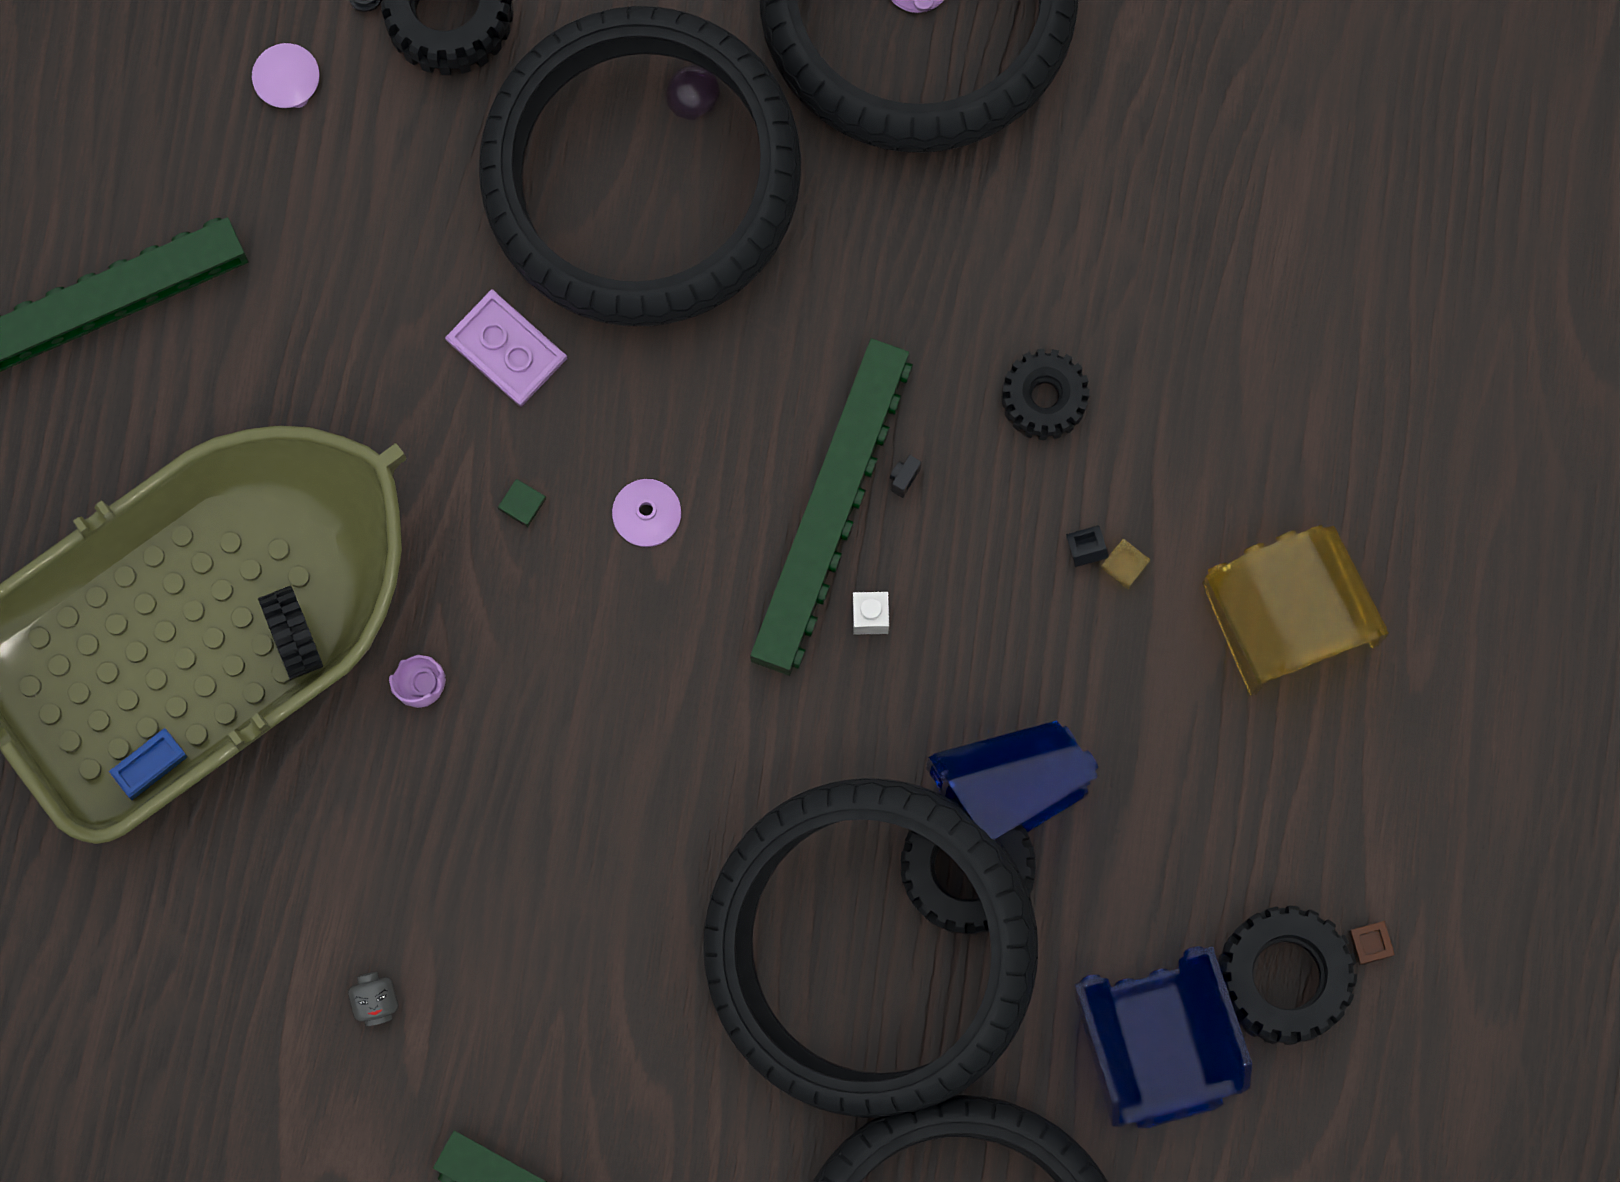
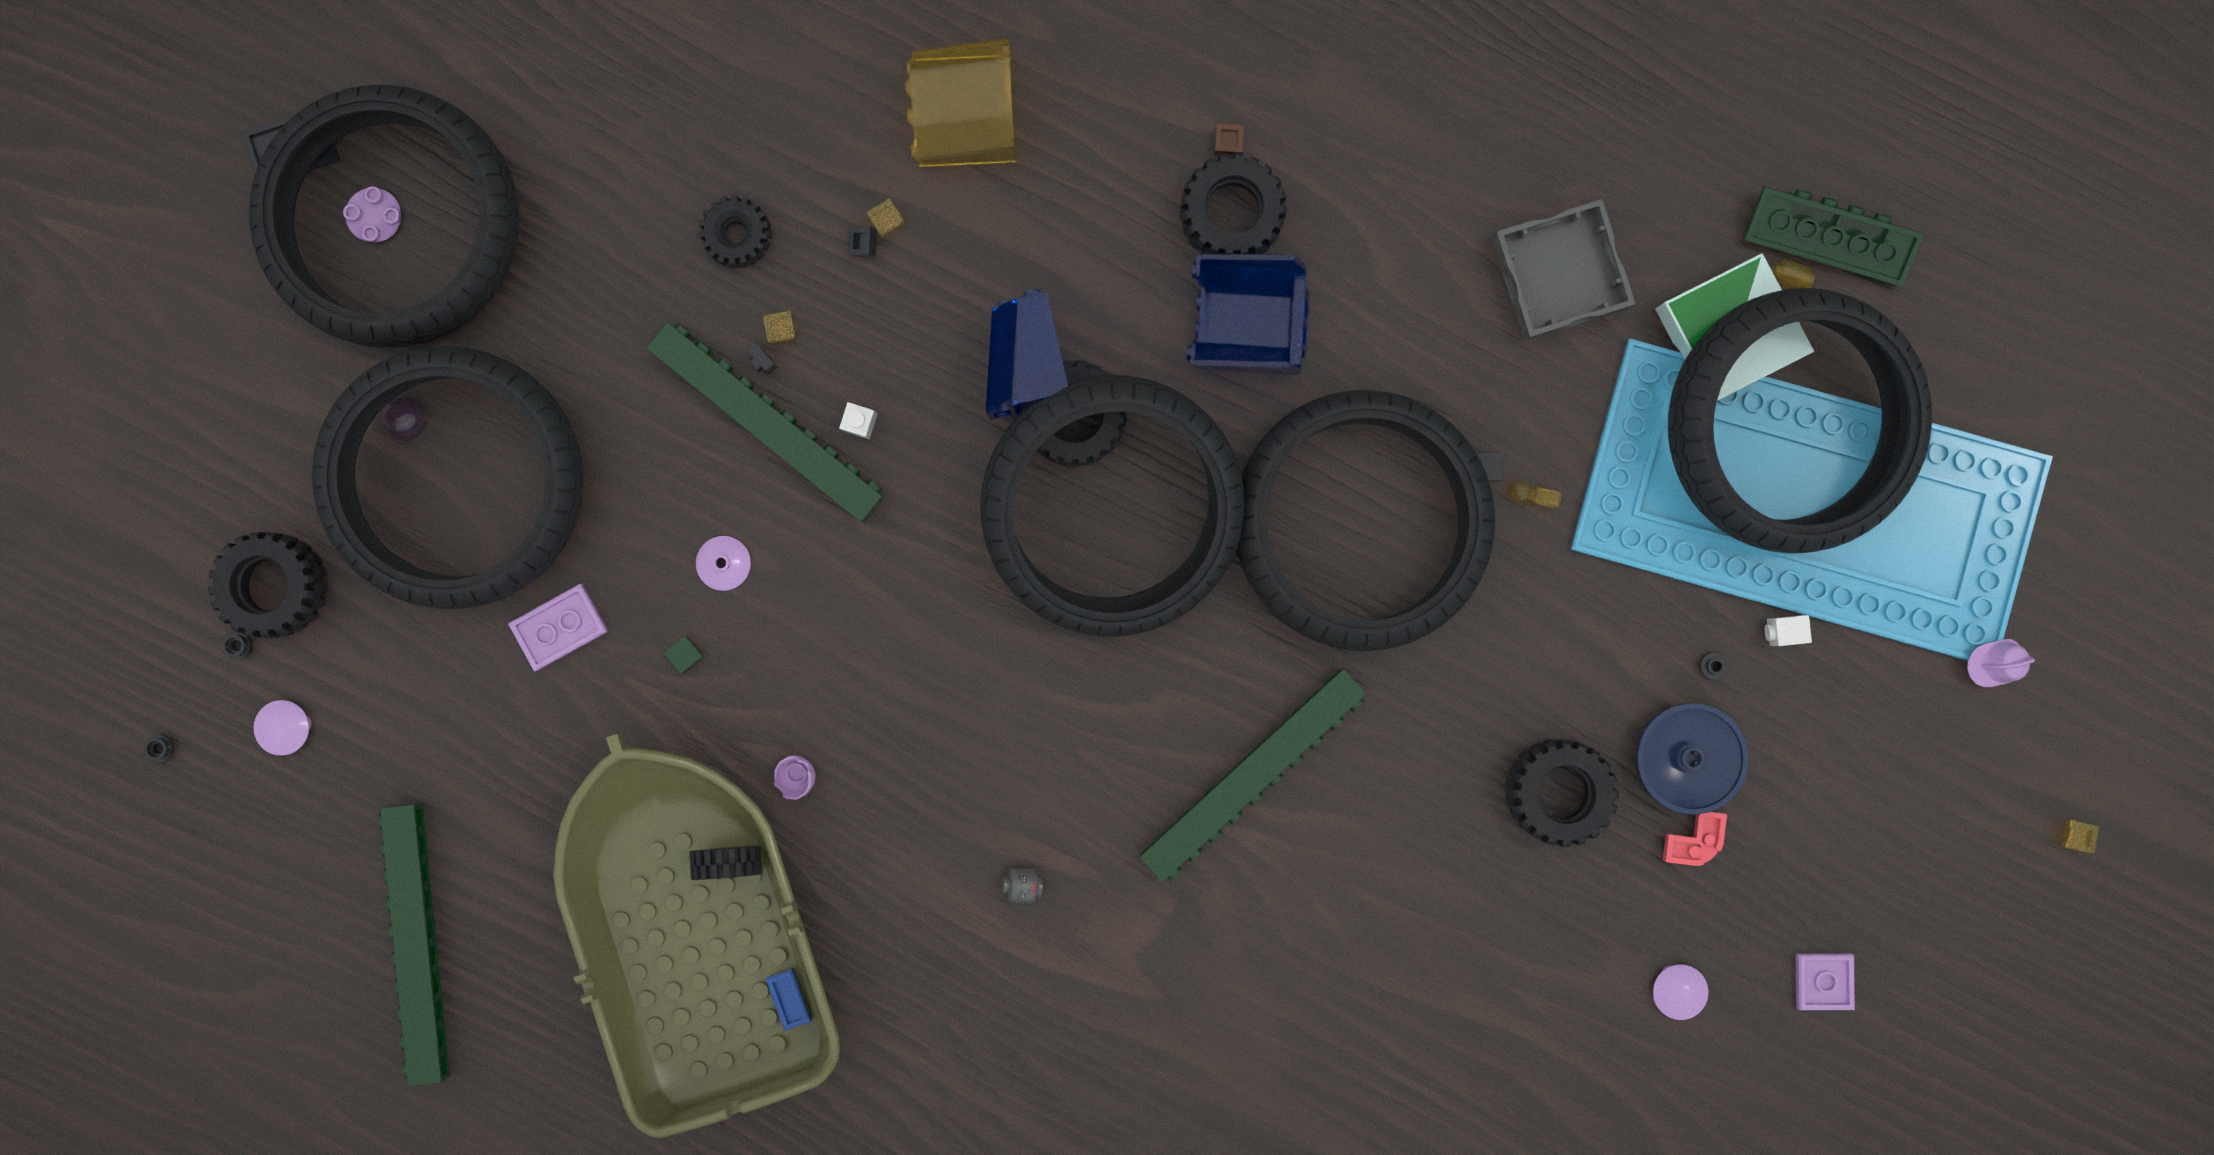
camera: 75 degrees left, 10 degrees up
(950, 483) = (779, 327): none -> clear yellow plate

